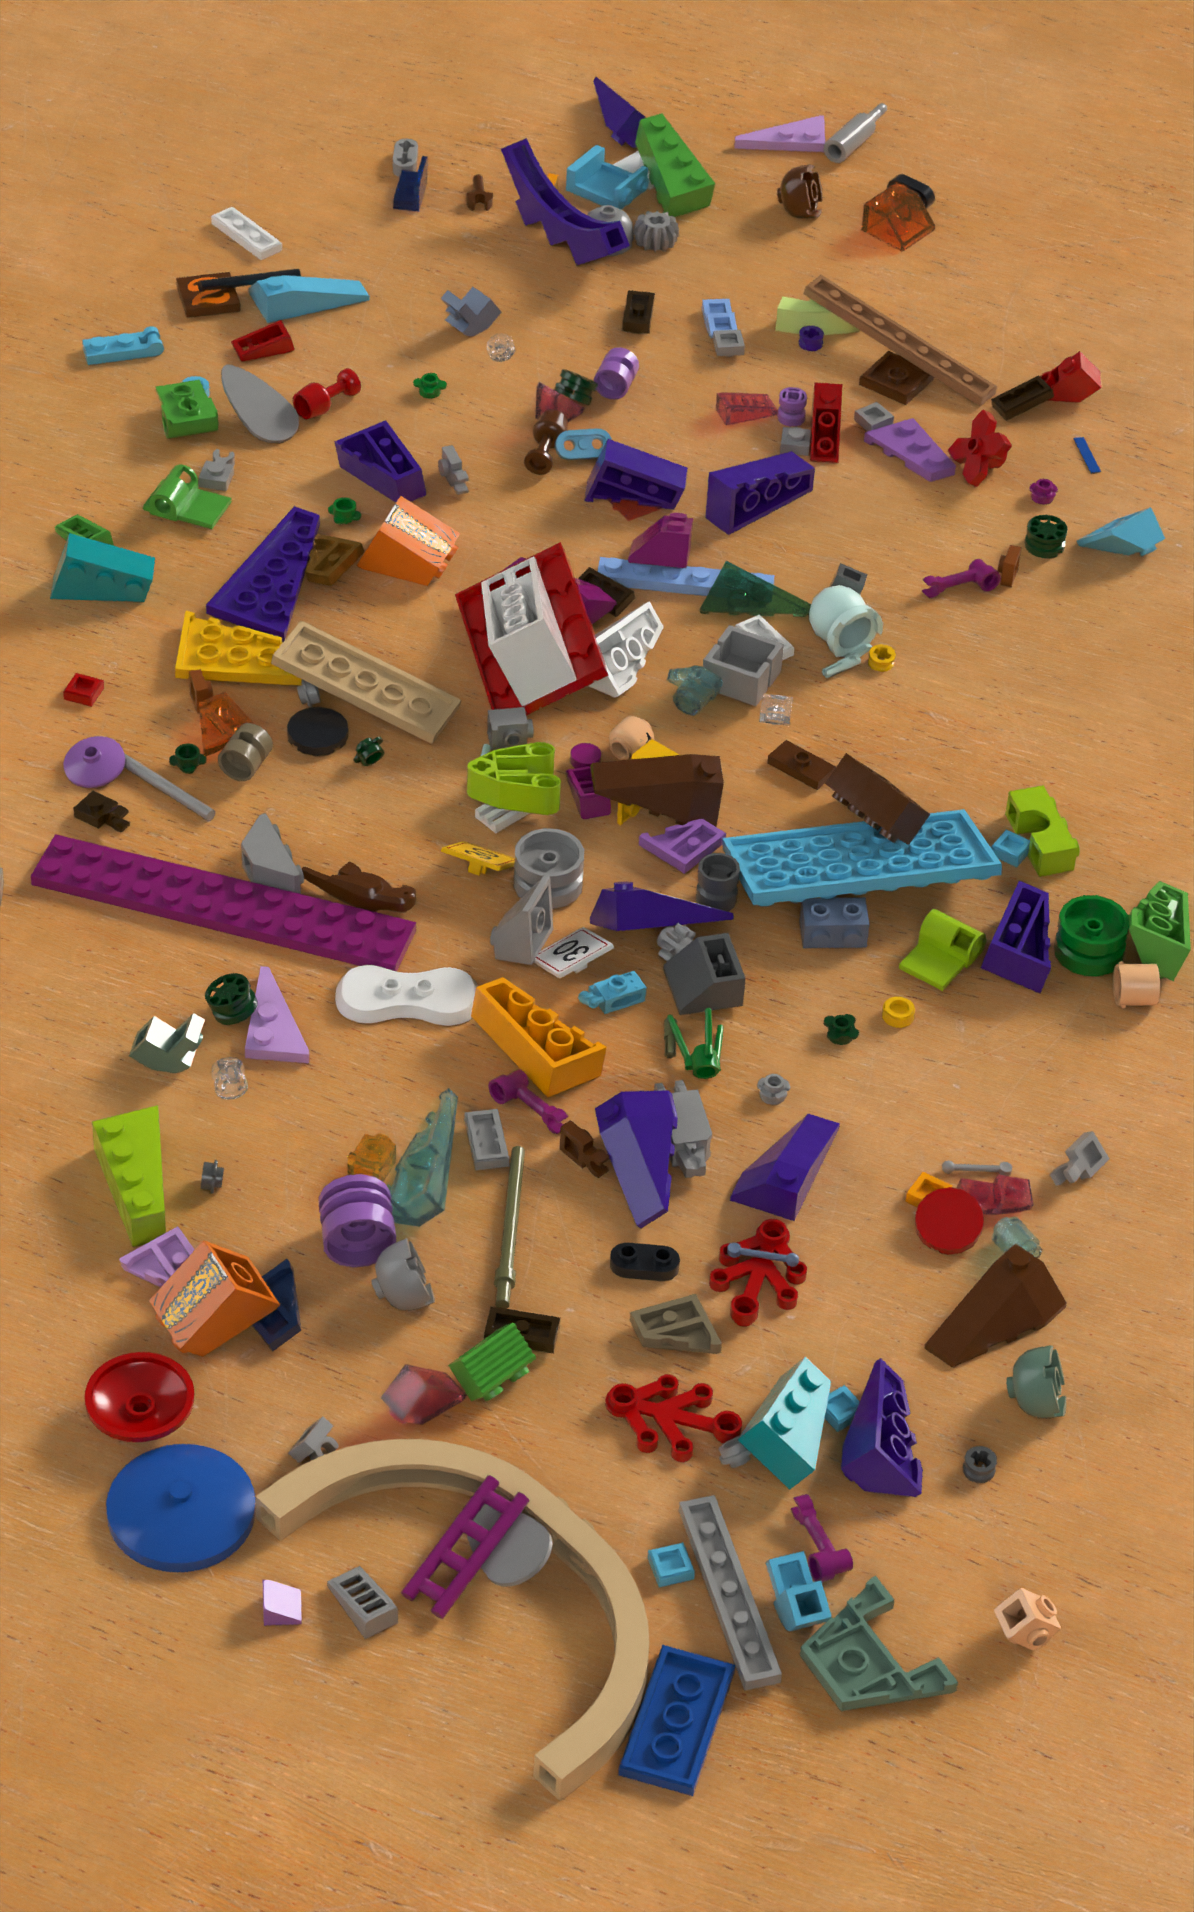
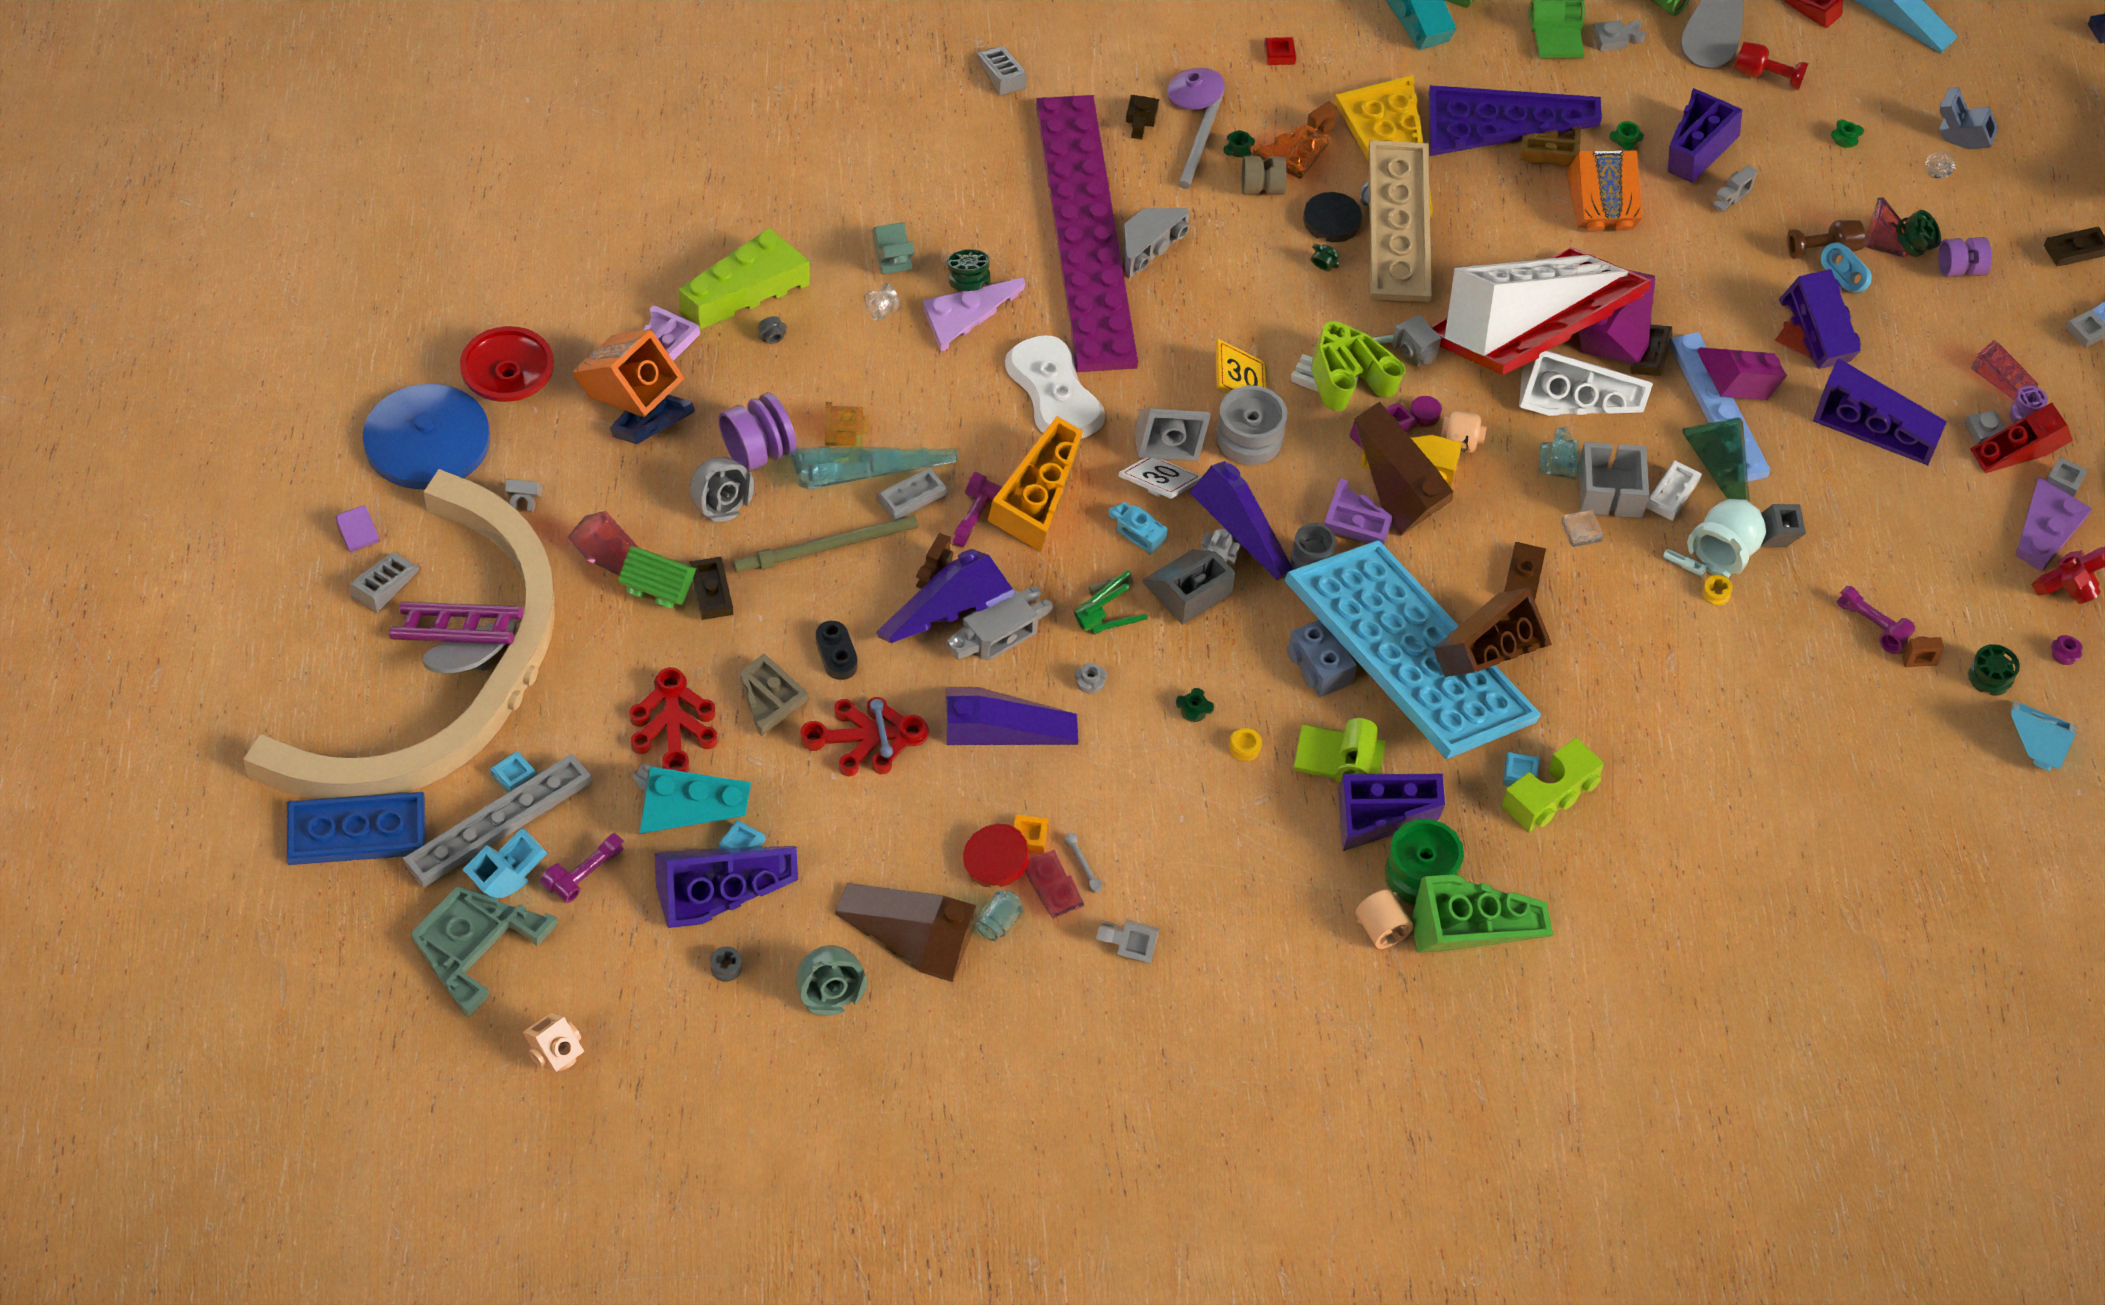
camera: 65 degrees right, 10 degrees up
(363, 889) = (1153, 314): reddish brown animal -> none

